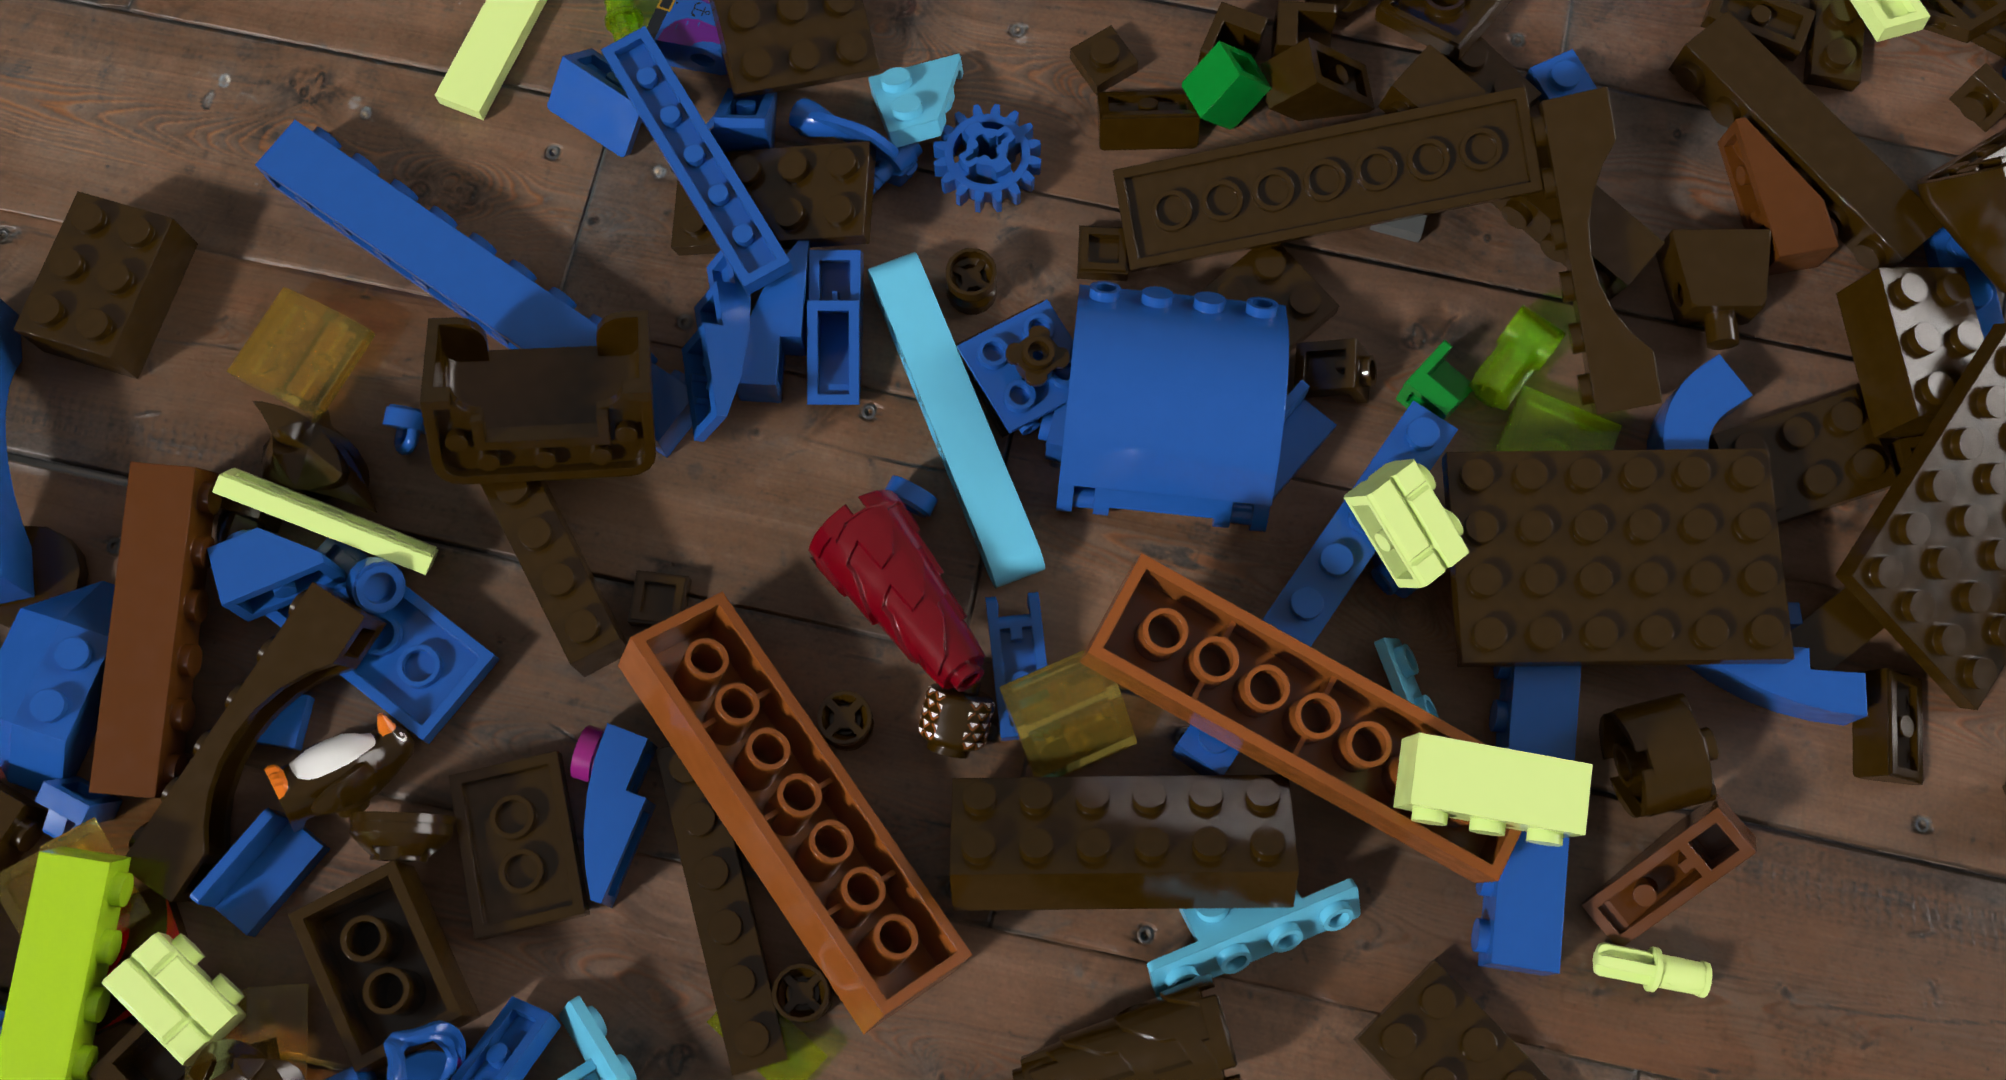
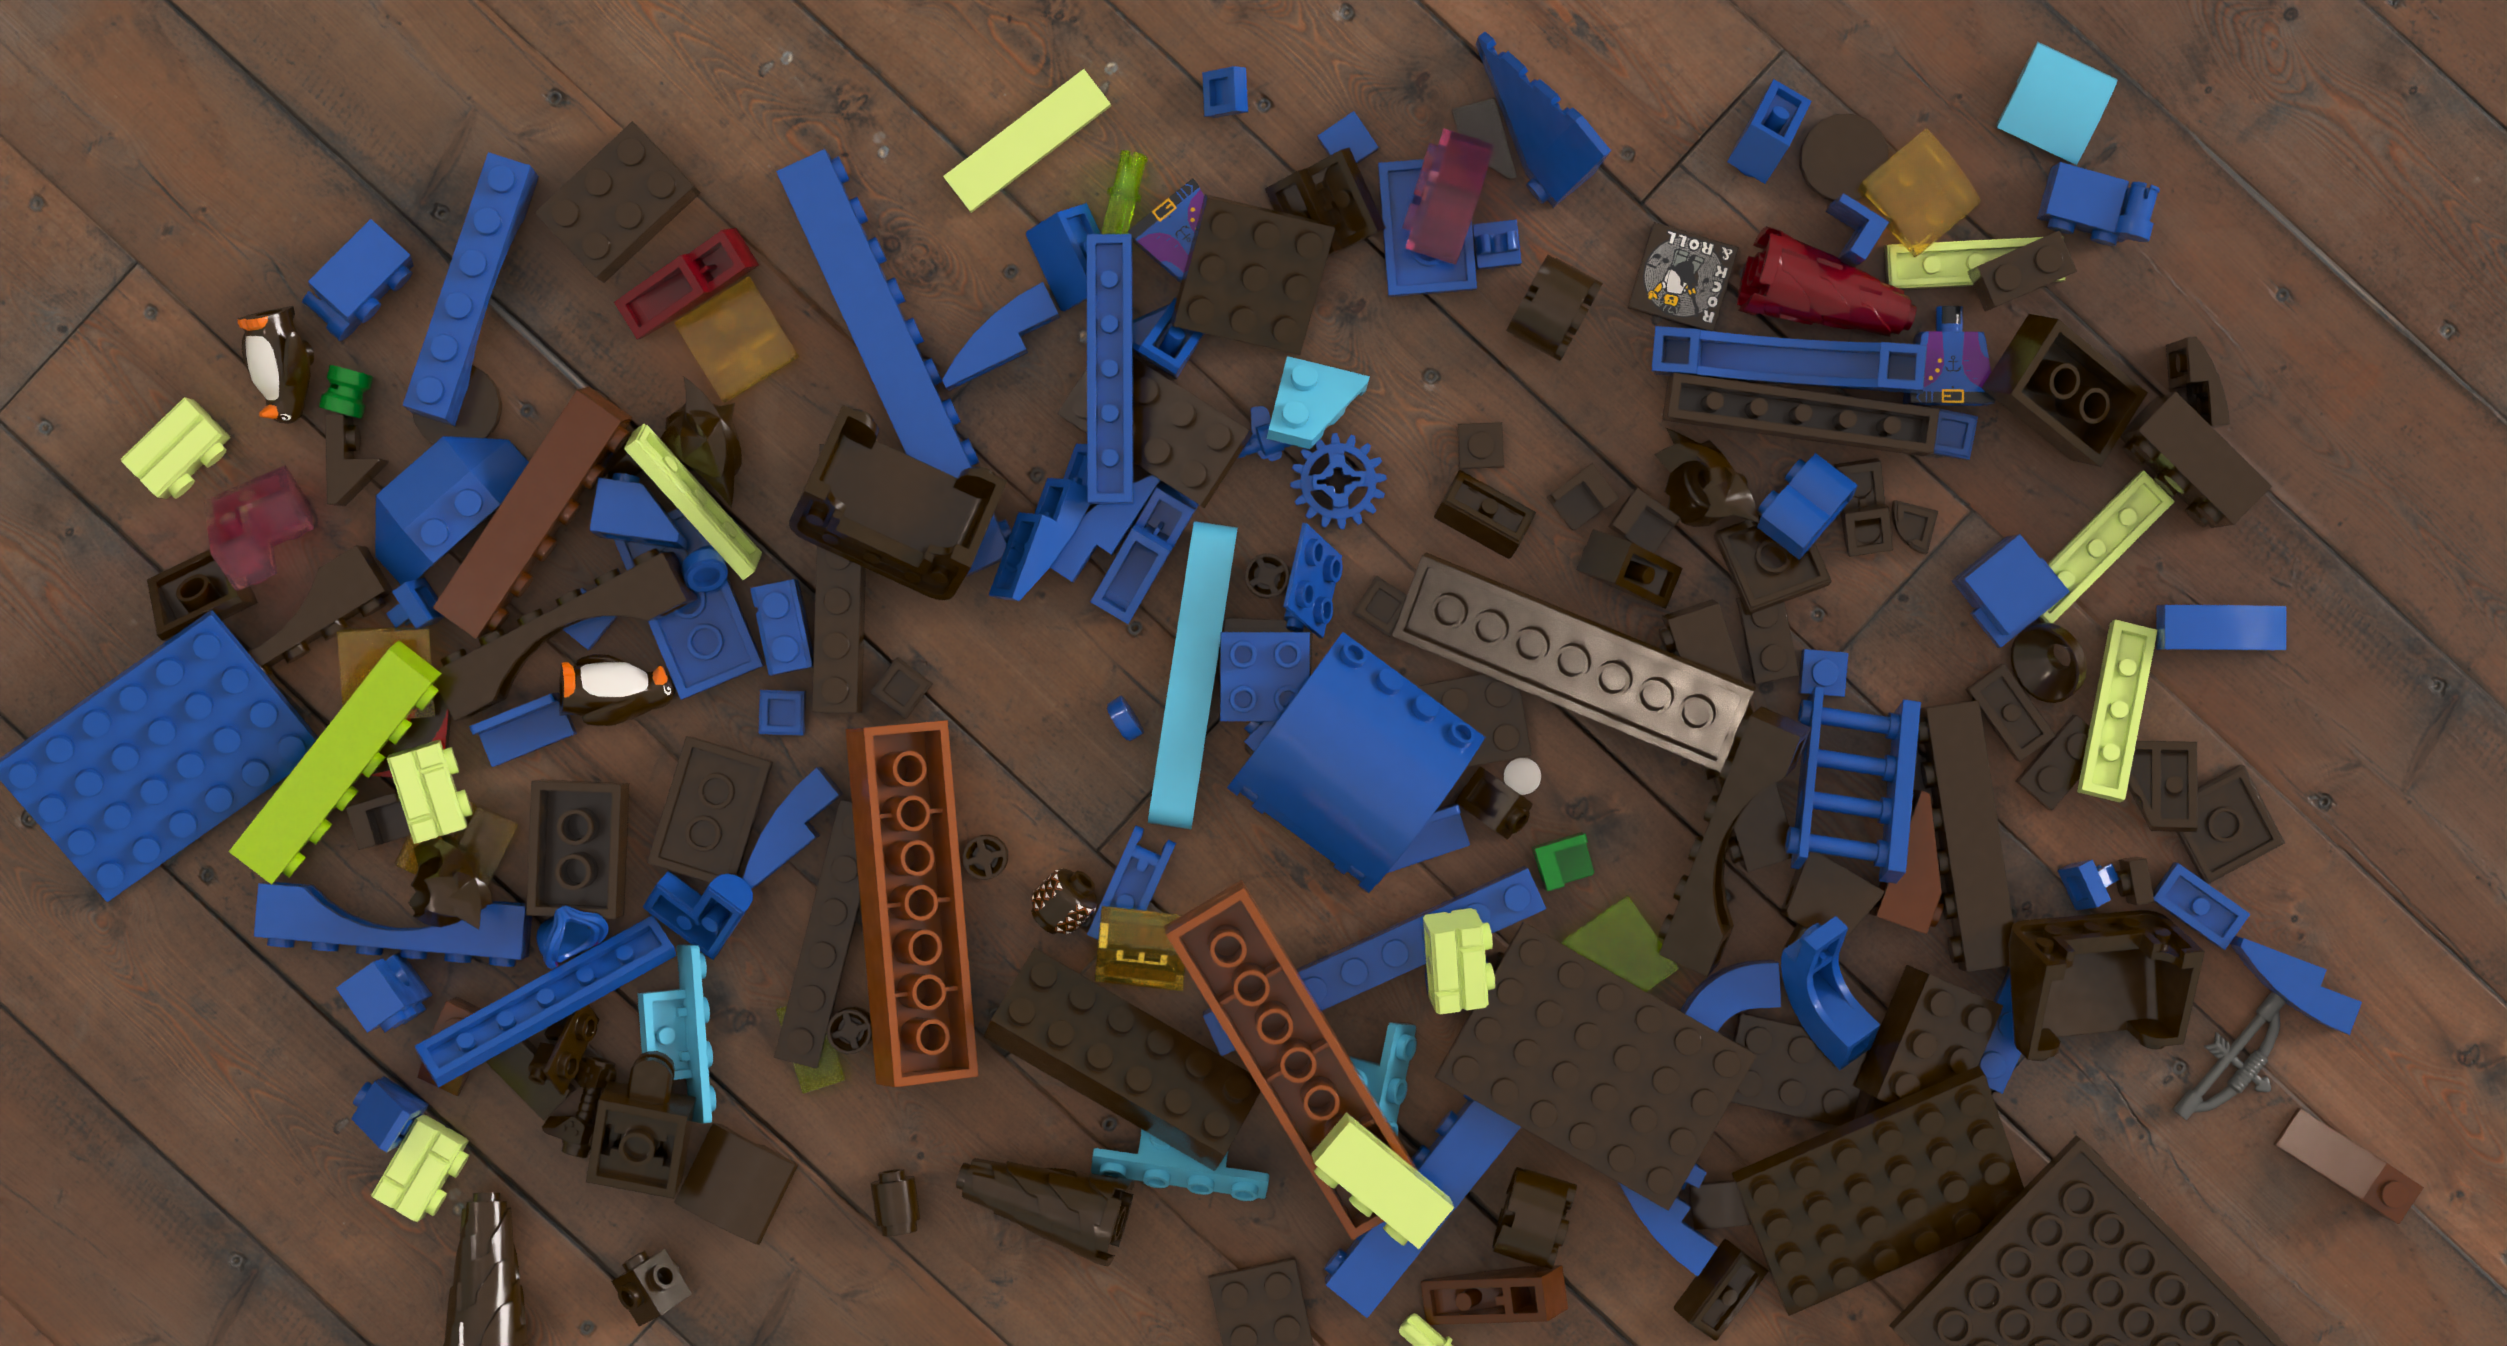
camera: 30 degrees right, 15 degrees up
(218, 325) = (686, 282): none -> dark red slope
(400, 834) = (633, 762): dark brown piece -> none
(408, 426) = (791, 444): blue tile -> none
(496, 602) = (783, 627): none -> blue brick
(544, 697) = (782, 712): none -> blue tile
(570, 962) = (699, 918): none -> blue brick
(574, 204) = (1000, 336): none -> blue slope
(585, 753) = (793, 776): magenta tile -> none
(813, 120) = (1225, 373): blue piece -> none
(899, 586) = (1073, 788): dark red cone -> none
(1019, 256) = (1312, 583): none -> blue hinge
(1032, 370) = (1262, 691): dark brown plate -> none
(1225, 85) = (1555, 530): green panel -> none
(1341, 328) = (1522, 775): none -> white sticker
(1520, 350) = (1646, 868): clear neon green piece -> none
(1723, 142) = (1896, 769): none -> blue fence
(1781, 365) = (1822, 998): none -> blue arch
(1944, 126) = (2088, 883): none -> blue tile

